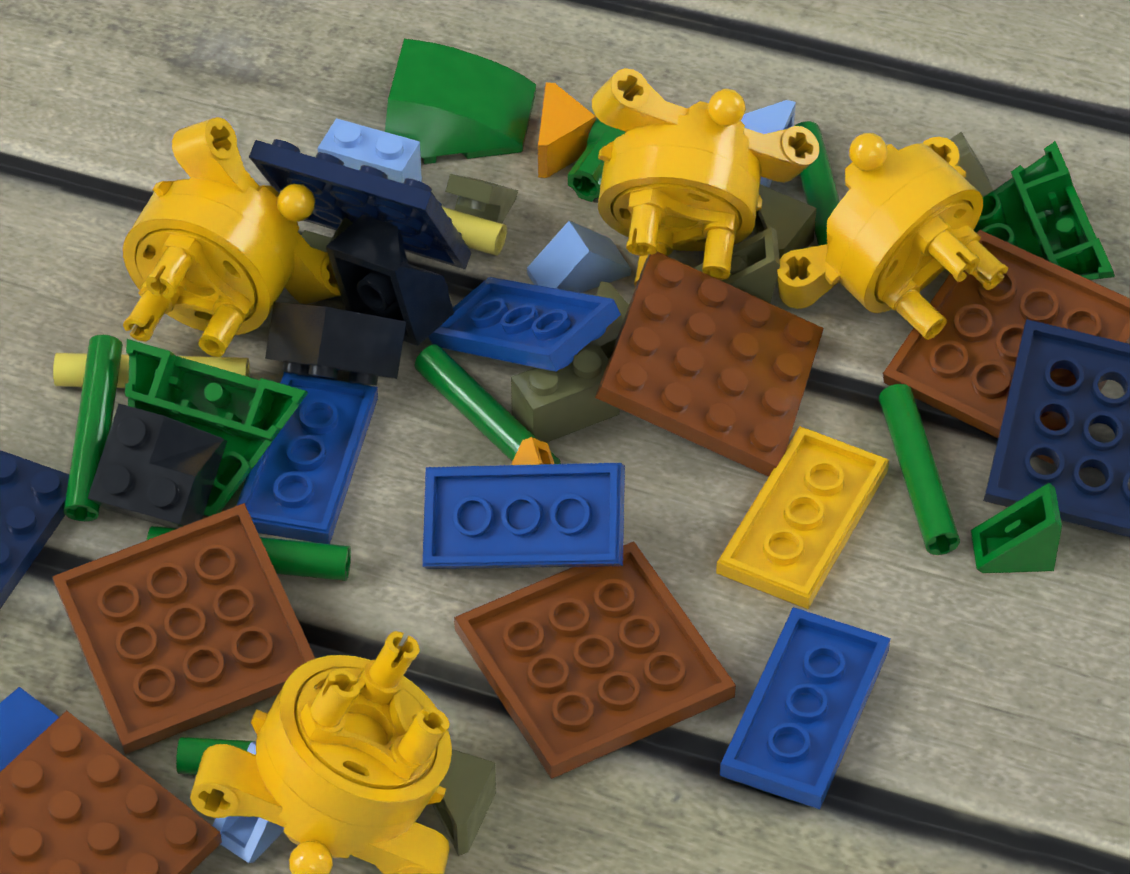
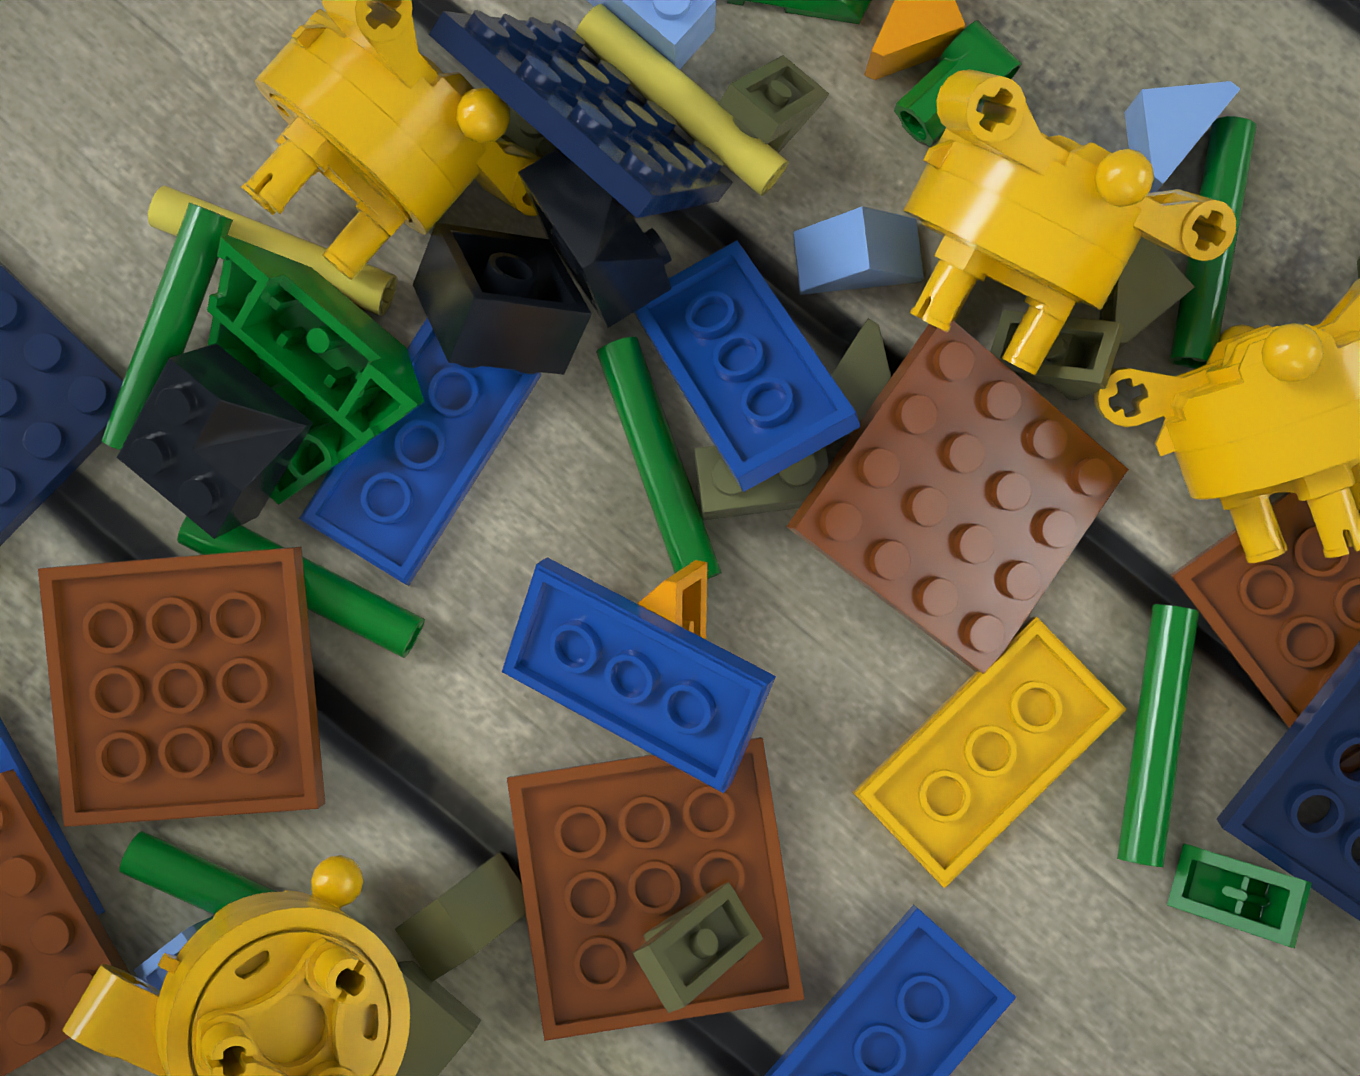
camera: 20 degrees right, 35 degrees up
(469, 708) = (465, 917): none -> olive slope
(636, 660) = (696, 946): none -> olive slope

